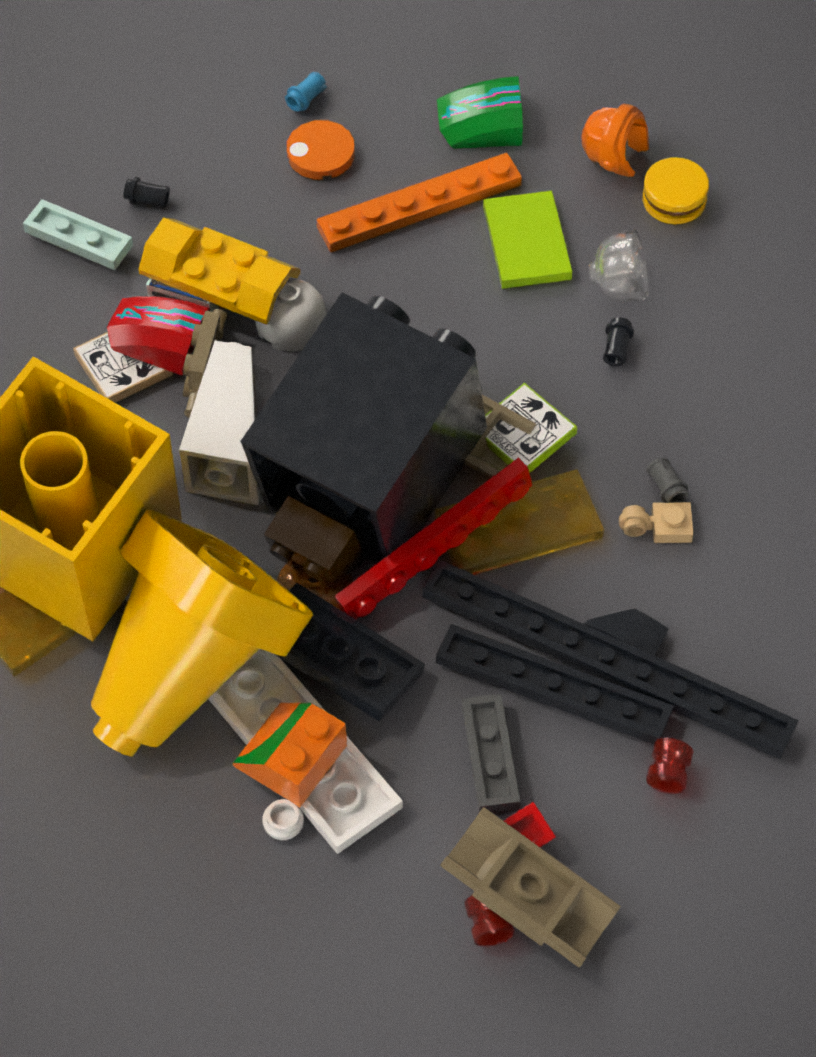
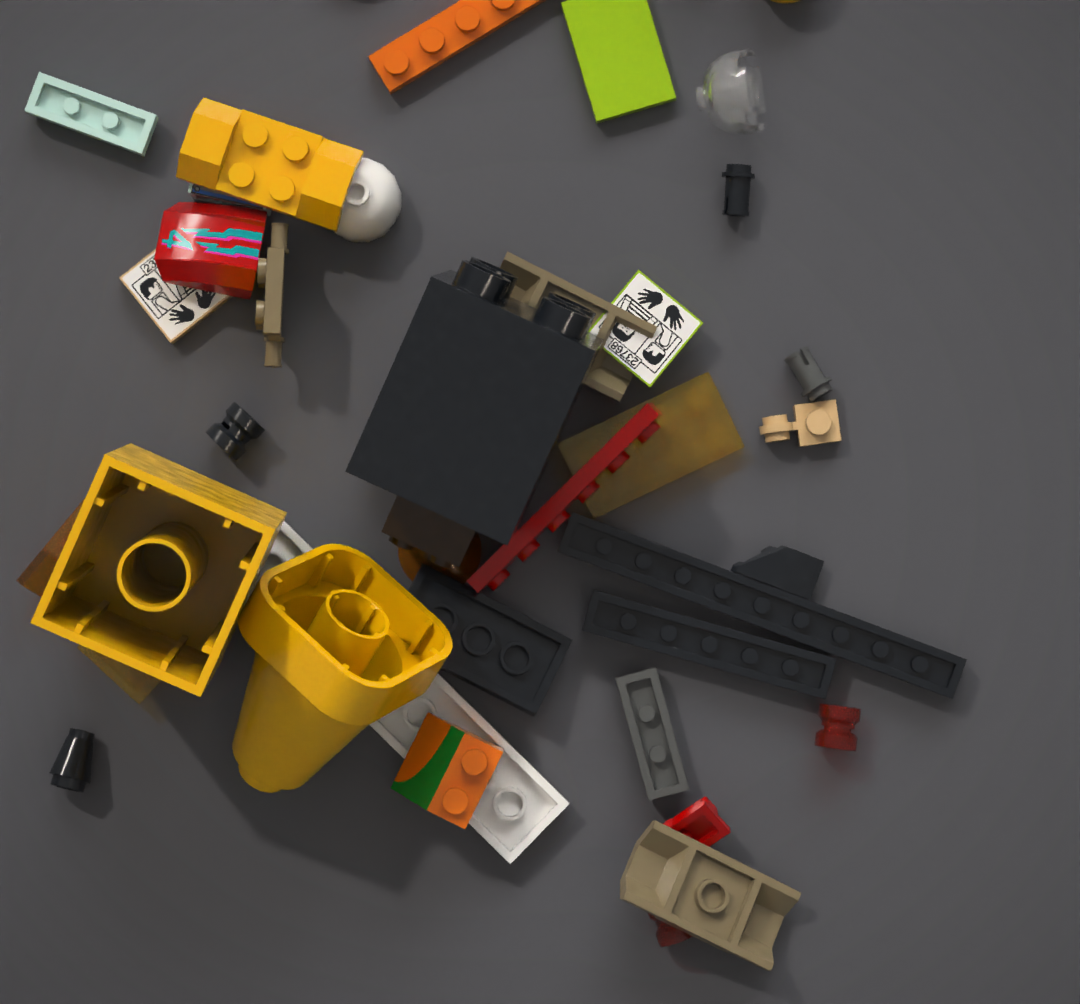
camera: 10 degrees left, 30 degrees up
(146, 193) = (160, 41): black pin -> none
(221, 415) = (313, 377): white slope -> none
(283, 819) = (448, 837): white plate -> none

